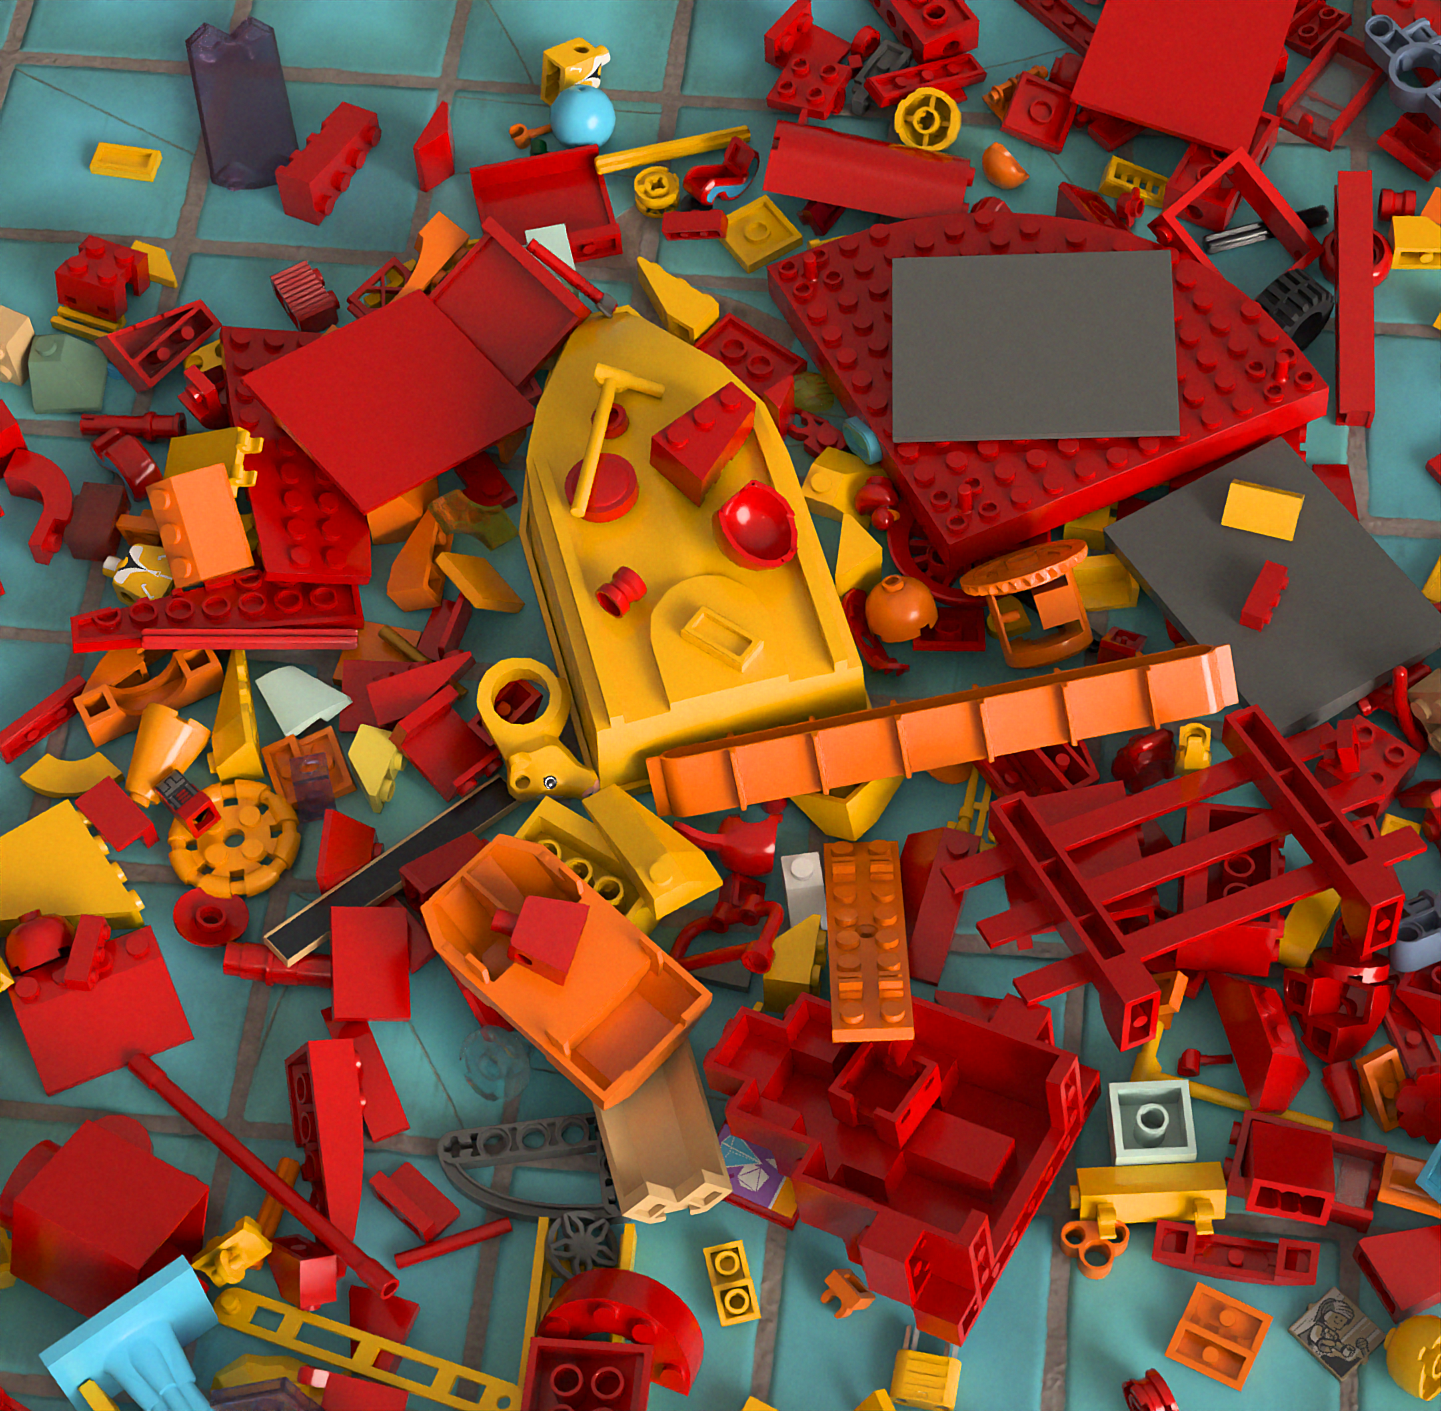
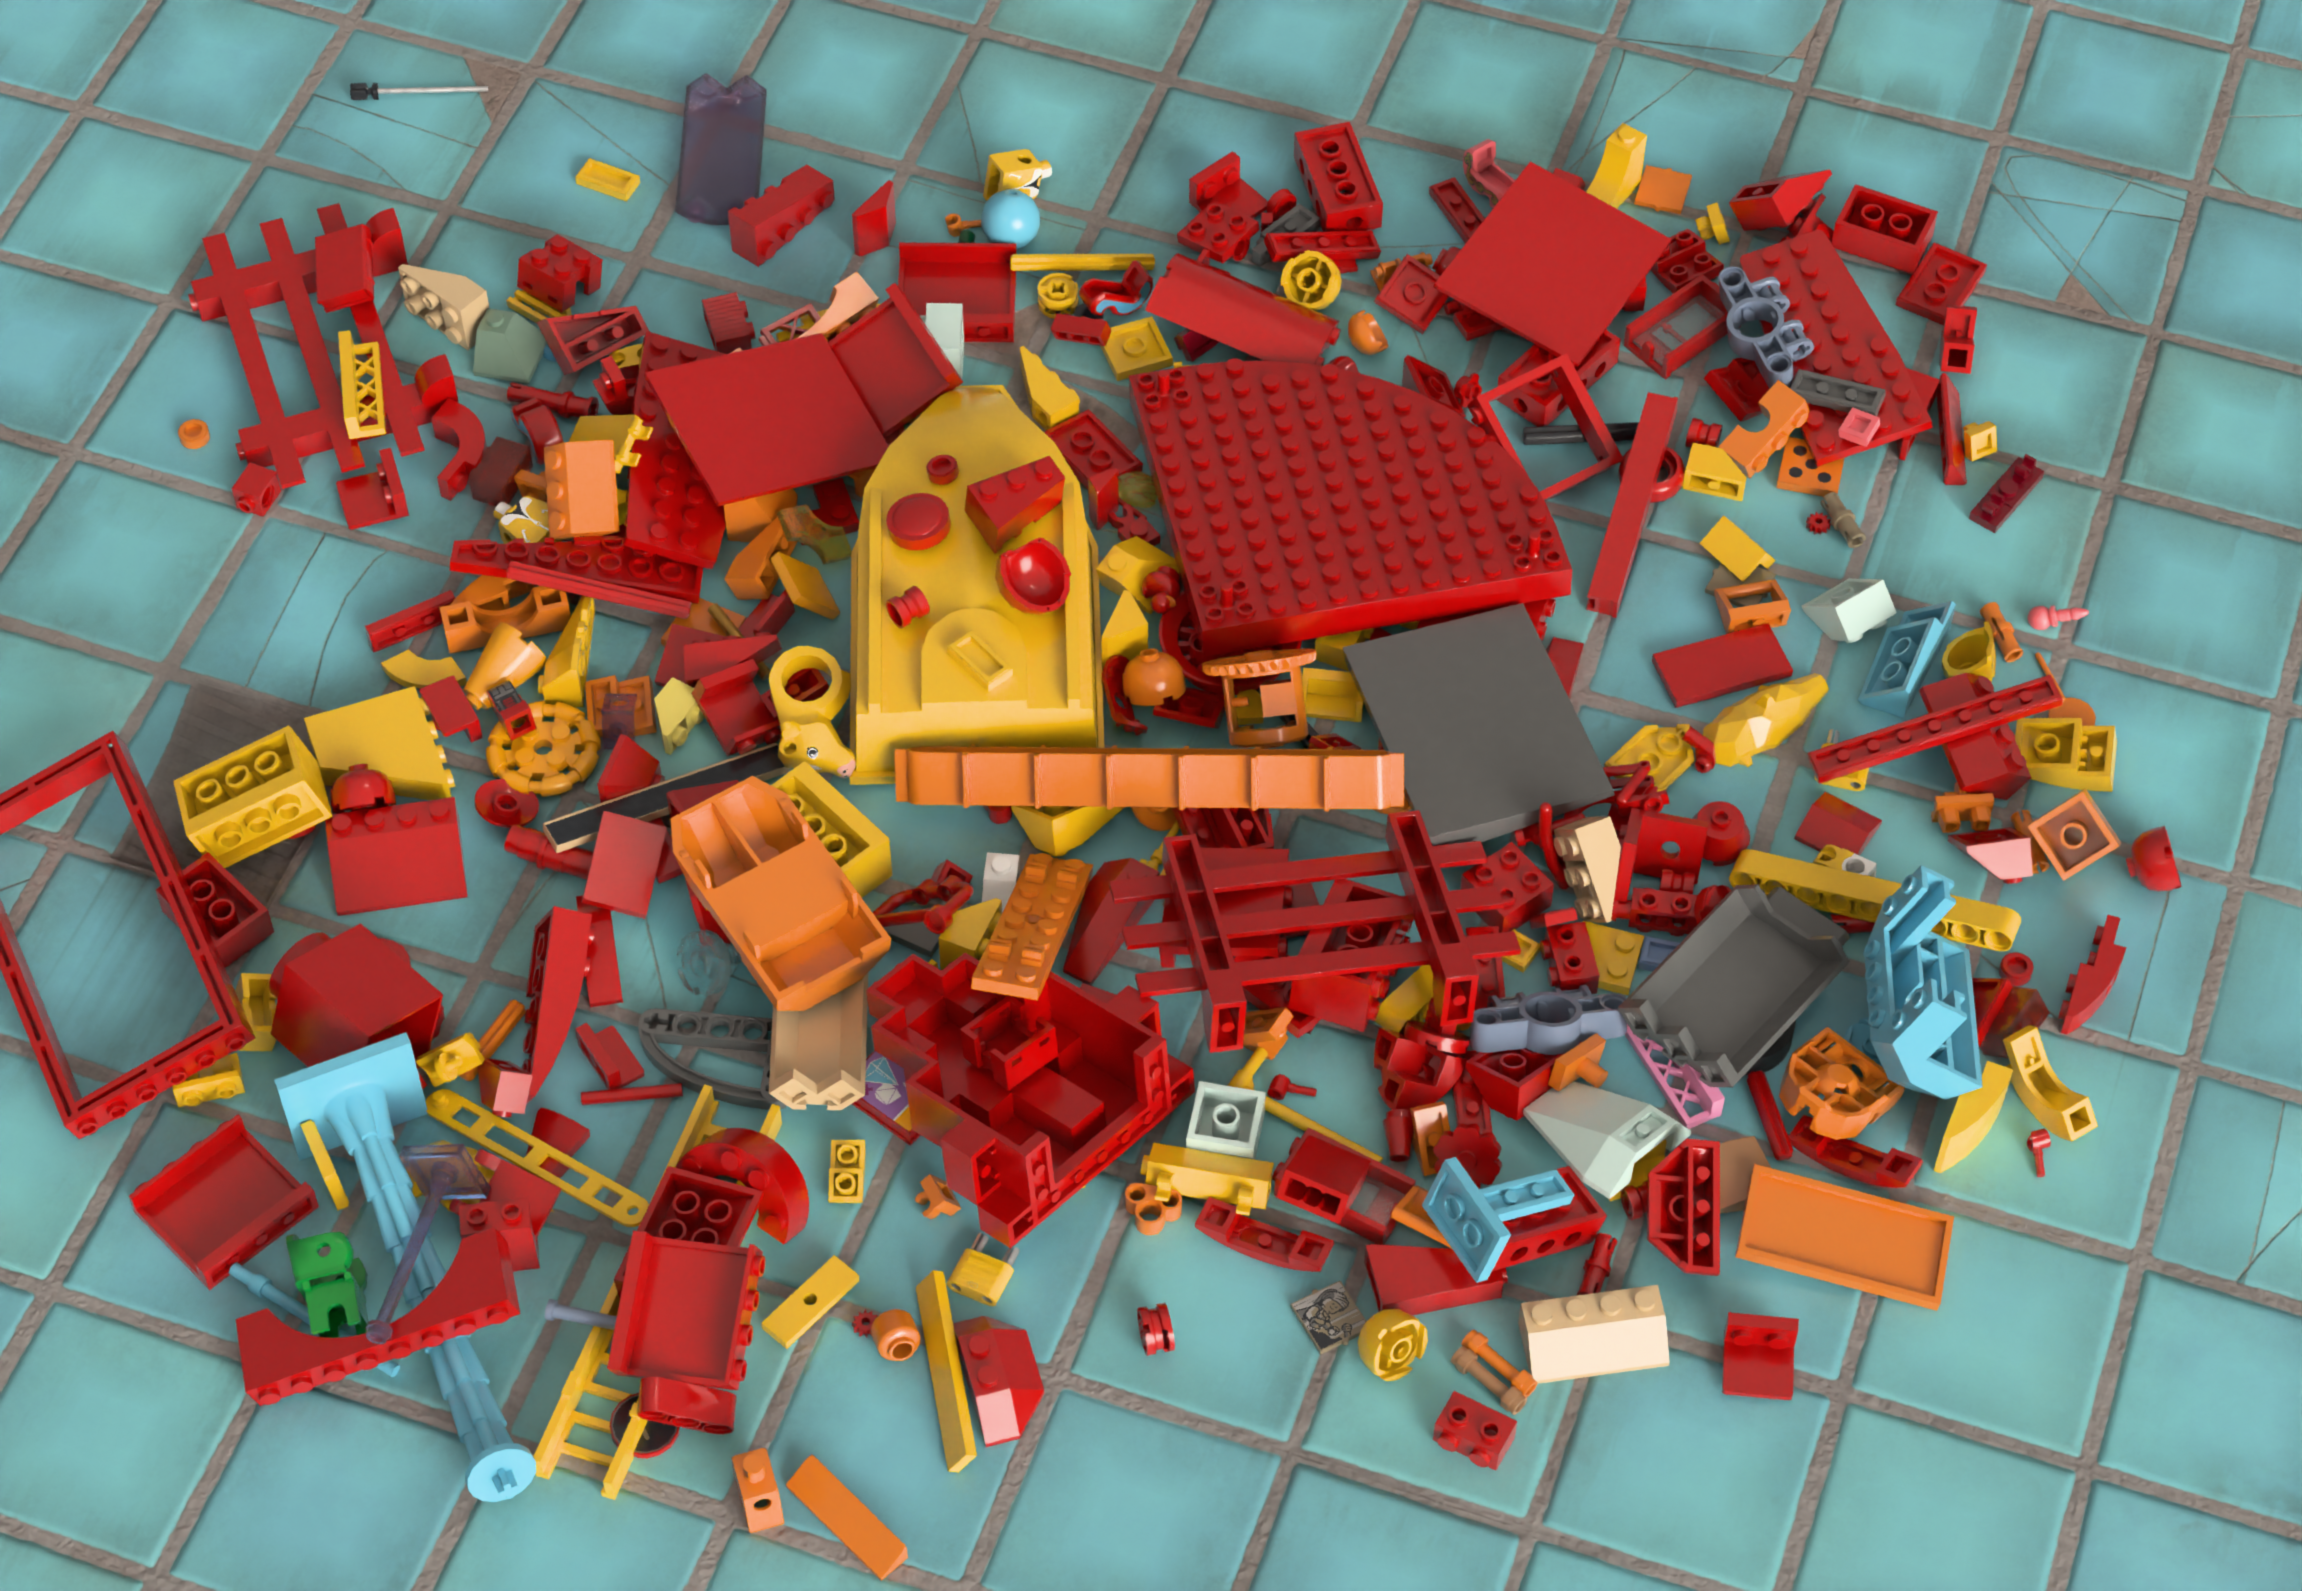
camera: 10 degrees right, 5 degrees down
(87, 952) = (396, 805): red piece -> none
(159, 265) = (611, 271): yellow tile -> none
(299, 698) = (627, 648): light aqua slope -> none
(366, 1268) = (553, 1088): red piece -> none
(543, 935) = (764, 859): torso -> none
(581, 1246) = (731, 1114): dark grey wheel -> none
(603, 301) = (976, 376): red piece -> none
(610, 380) = (951, 436): yellow bar -> none
(654, 855) = (877, 823): yellow wedge -> none
(738, 844) = (956, 837): red piece -> none
(861, 440) = (1164, 536): medium azure tile -> none
(1033, 347) = (1328, 484): dark grey slope -> none
(1126, 171) = (1475, 359): yellow slope -> none
(1145, 760) = (1322, 839): red piece -> none
(1193, 749) = (1356, 835): yellow animal -> none
(1219, 1336) = (1231, 1297): orange slope -> none
(1260, 1040) = (1341, 1081): red wedge -> none
(1262, 509) = (1481, 657): yellow panel -> none
(1264, 596) = (1457, 727): red piece -> none
(1298, 306) = (1575, 503): black tyre -> none
(1342, 746) = (1481, 859): red tile -> none

